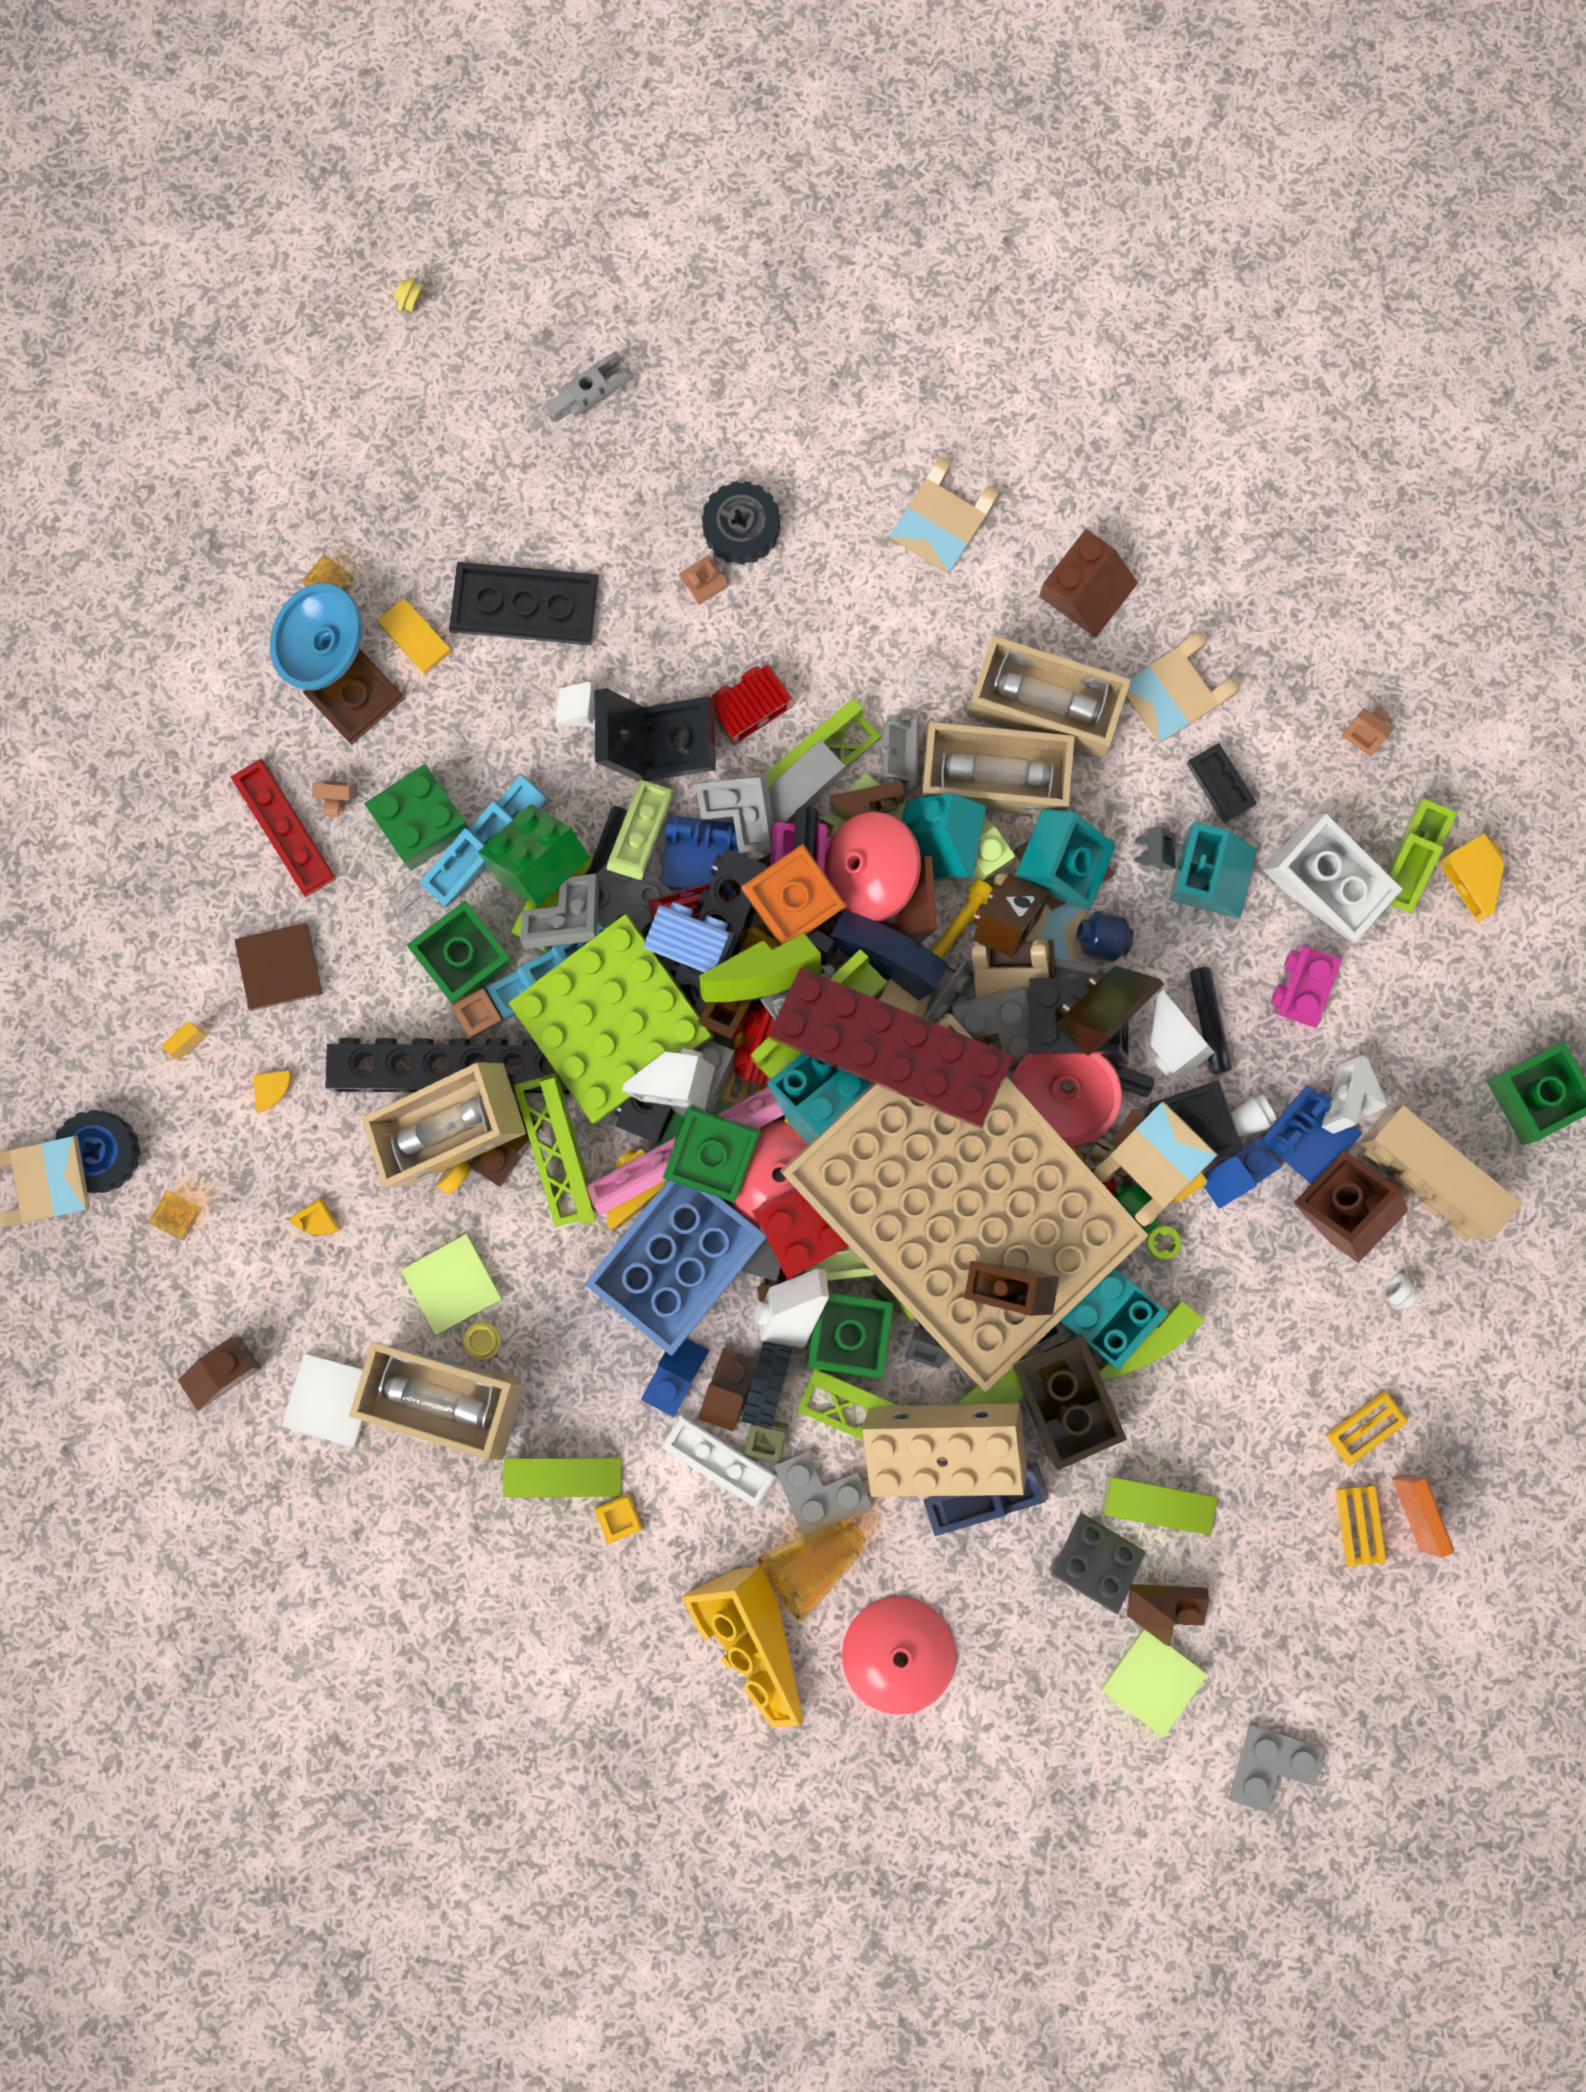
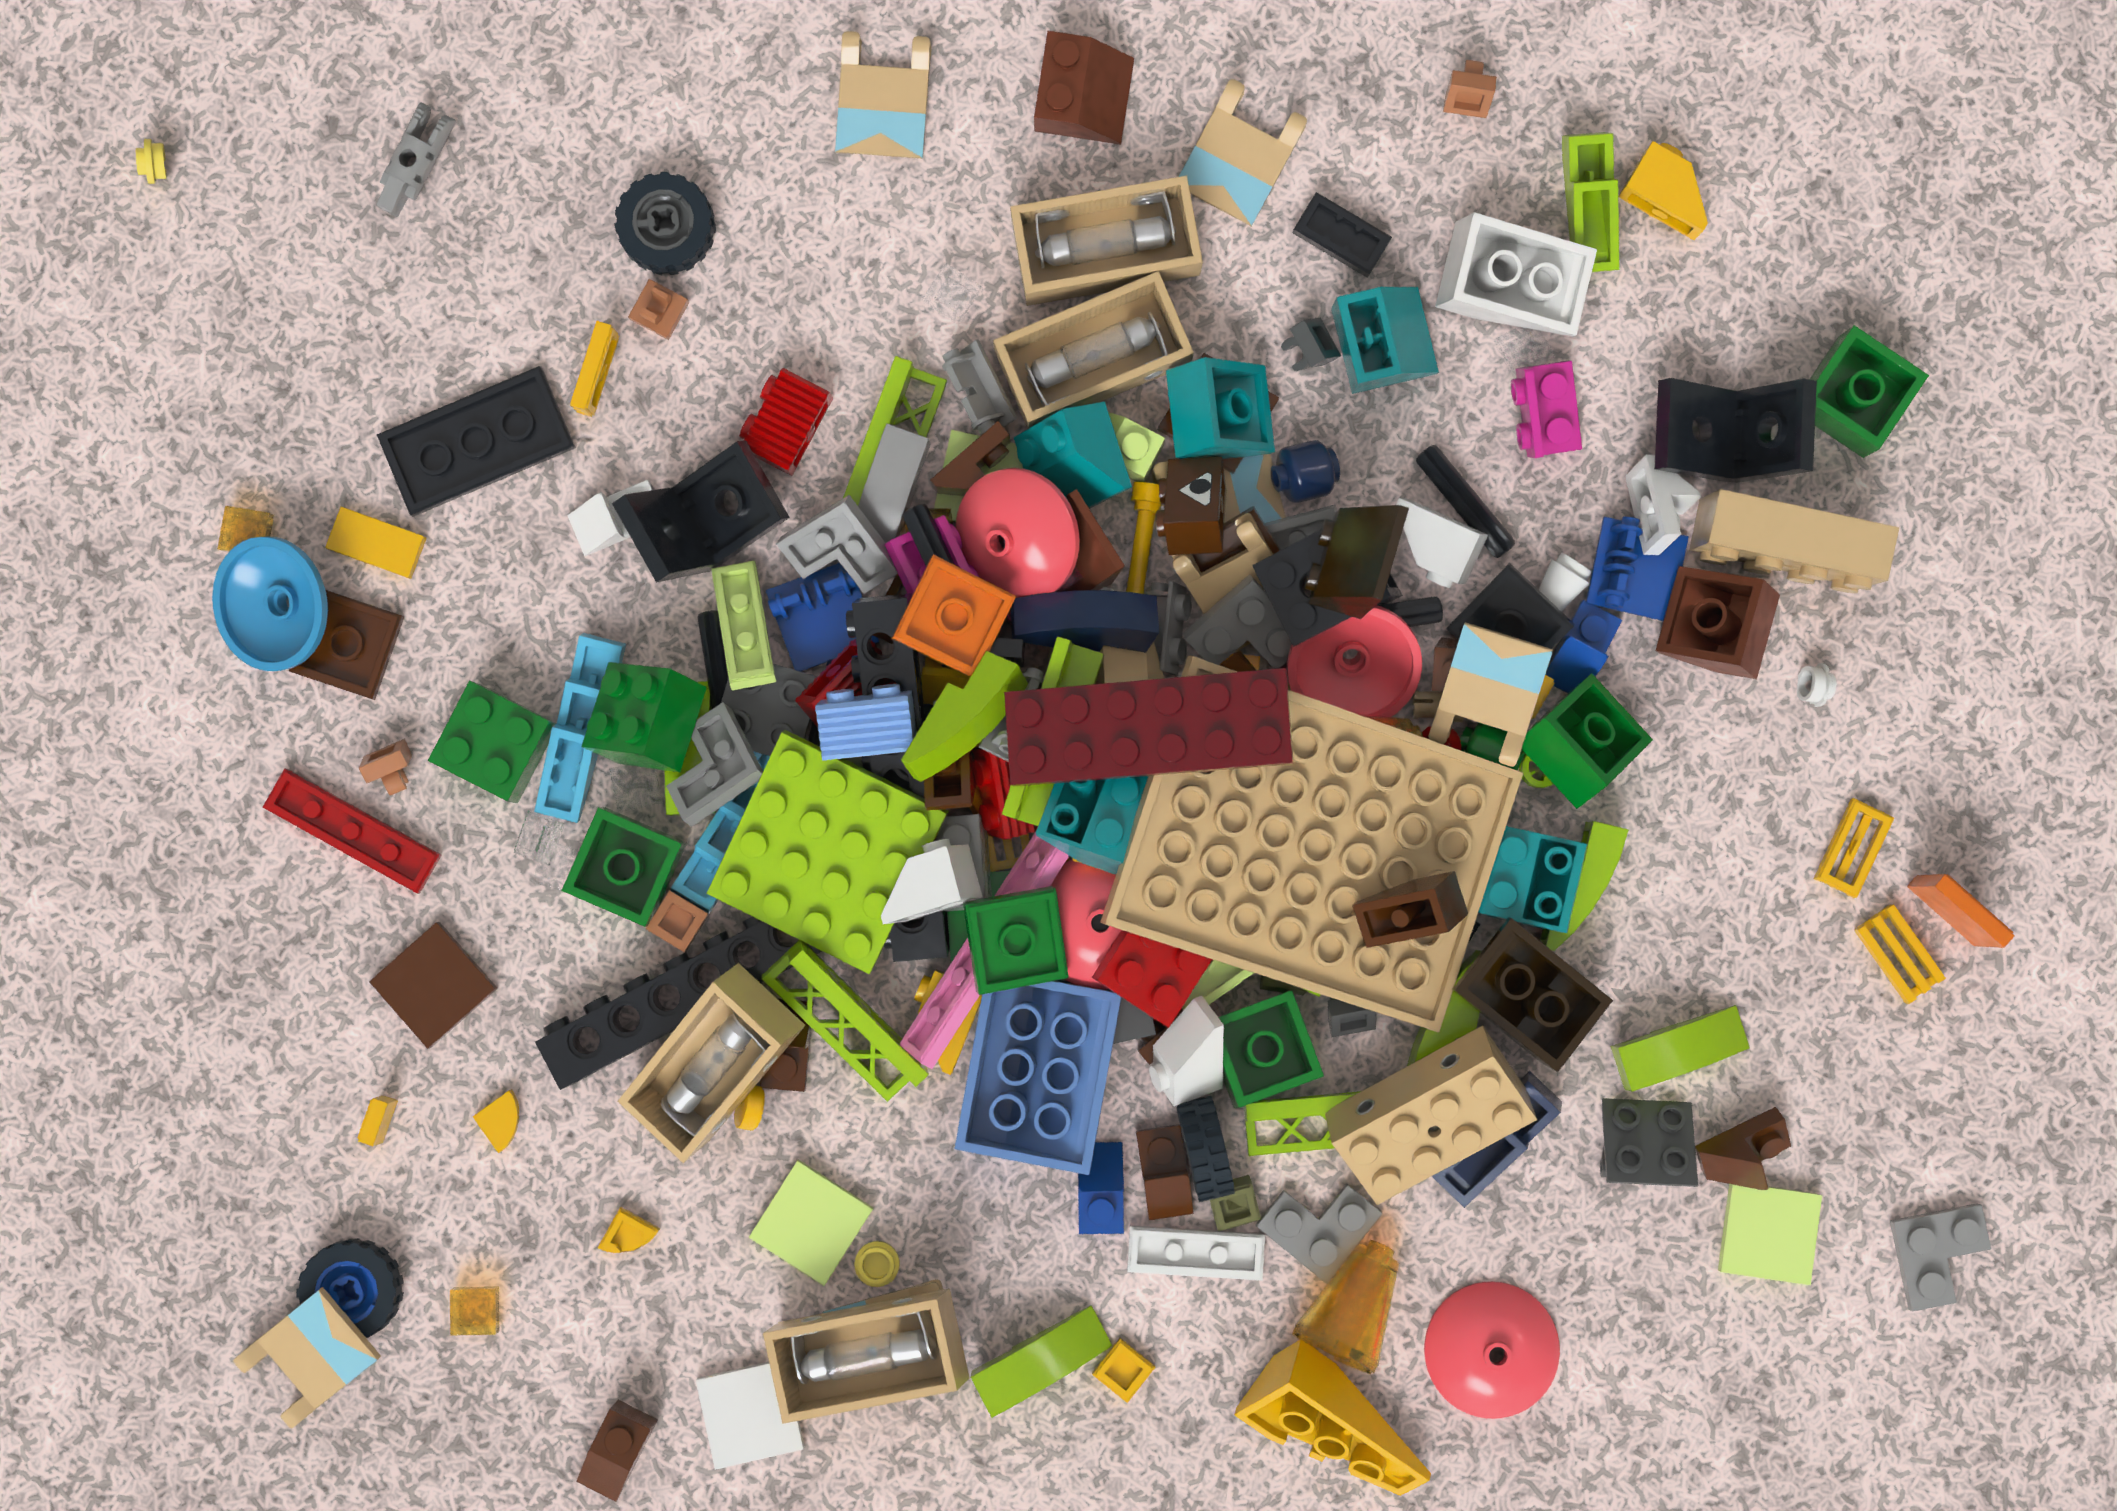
camera: 25 degrees left, 5 degrees up
(635, 596) = (595, 369): none -> yellow tile
(1206, 1237) = (1585, 741): none -> green brick
(1436, 1071) = (1735, 430): none -> black bracket

